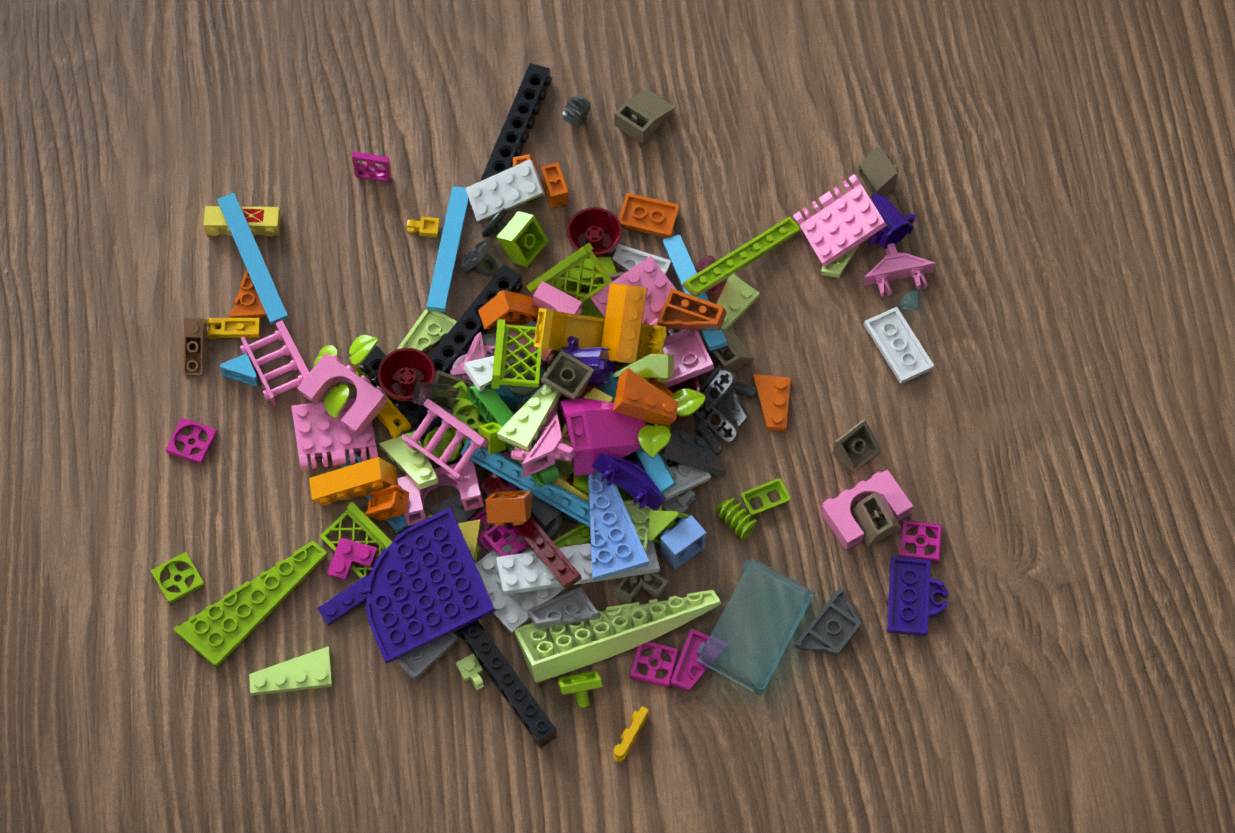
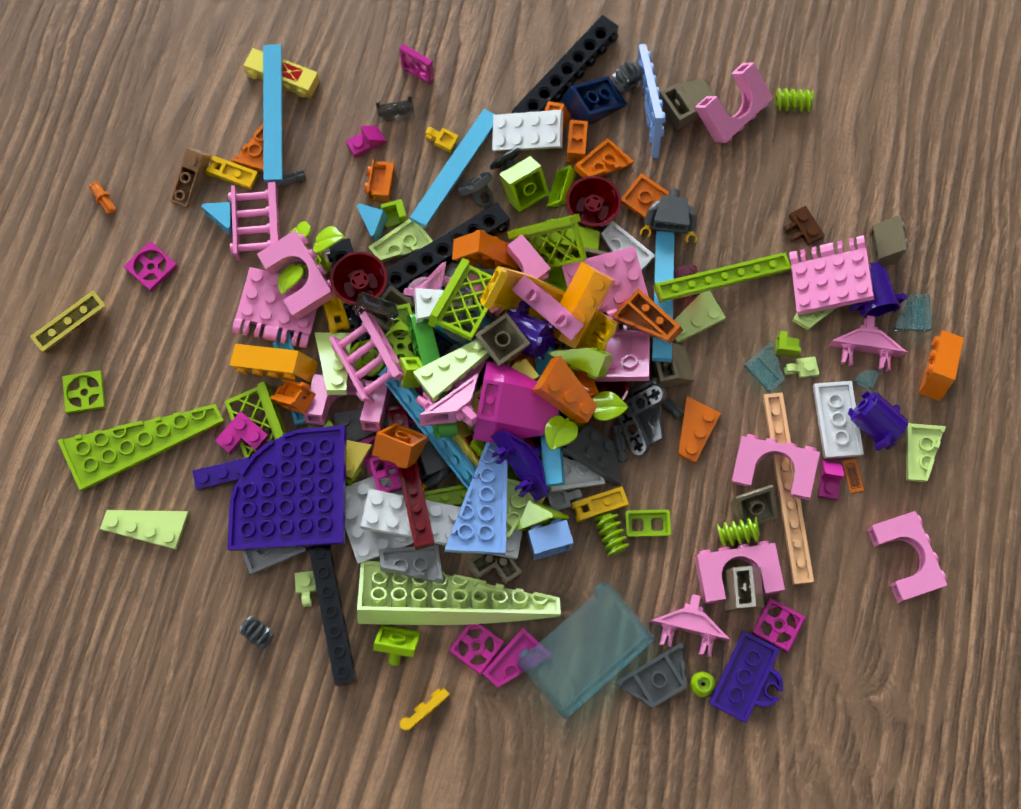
camera: 20 degrees right, 10 degrees up
(115, 395) = (102, 197): none -> orange axle
(135, 517) = (68, 321): none -> light yellow brick
(295, 312) = (290, 178): none -> dark grey axle
(352, 253) = (367, 140): none -> dark pink slope
(368, 217) = (395, 110): none -> clear smoke hinge
(383, 286) = (380, 181): none -> orange hinge
(391, 320) = (374, 220): none -> medium azure slope
(408, 310) = (395, 212): none -> lime panel
(444, 725) = (256, 632): none -> dark grey gear
(553, 142) = (593, 100): none -> dark blue slope
(553, 232) = (562, 182): none -> lime piece
(586, 193) = (603, 160): none -> orange wing
(596, 333) = (547, 307): none -> bright pink connector
(612, 127) = (652, 104): none -> light blue wing
(672, 218) = (671, 215): none -> dark grey torso
(703, 90) = (754, 98): none -> bright pink arch
(713, 496) = (600, 504): none -> yellow plate
(740, 78) = (794, 99): none -> lime piece
(798, 187) = (806, 226): none -> reddish brown hinge
(815, 324) = (765, 368): none -> clear light blue wing
(825, 298) = (786, 345): none -> lime panel
(835, 396) = (754, 450): none -> bright pink arch
(839, 566) = (690, 620): none -> bright pink connector
(850, 311) = (804, 368): none -> yellowish green plate
(851, 473) = (739, 532): none -> lime piece
(870, 621) = (698, 689): none -> lime plate
(879, 420) = (790, 506): none -> light nougat plate
(913, 400) = (830, 478): none -> dark pink slope
(929, 229) = (915, 314): none -> clear light blue wing
(932, 389) = (853, 475): none -> sticker
(934, 329) = (879, 420): none -> dark purple container
(971, 265) = (942, 365): none -> orange wedge
(983, 343) = (921, 449): none -> yellowish green wing
(1002, 416) = (910, 529): none -> bright pink arch

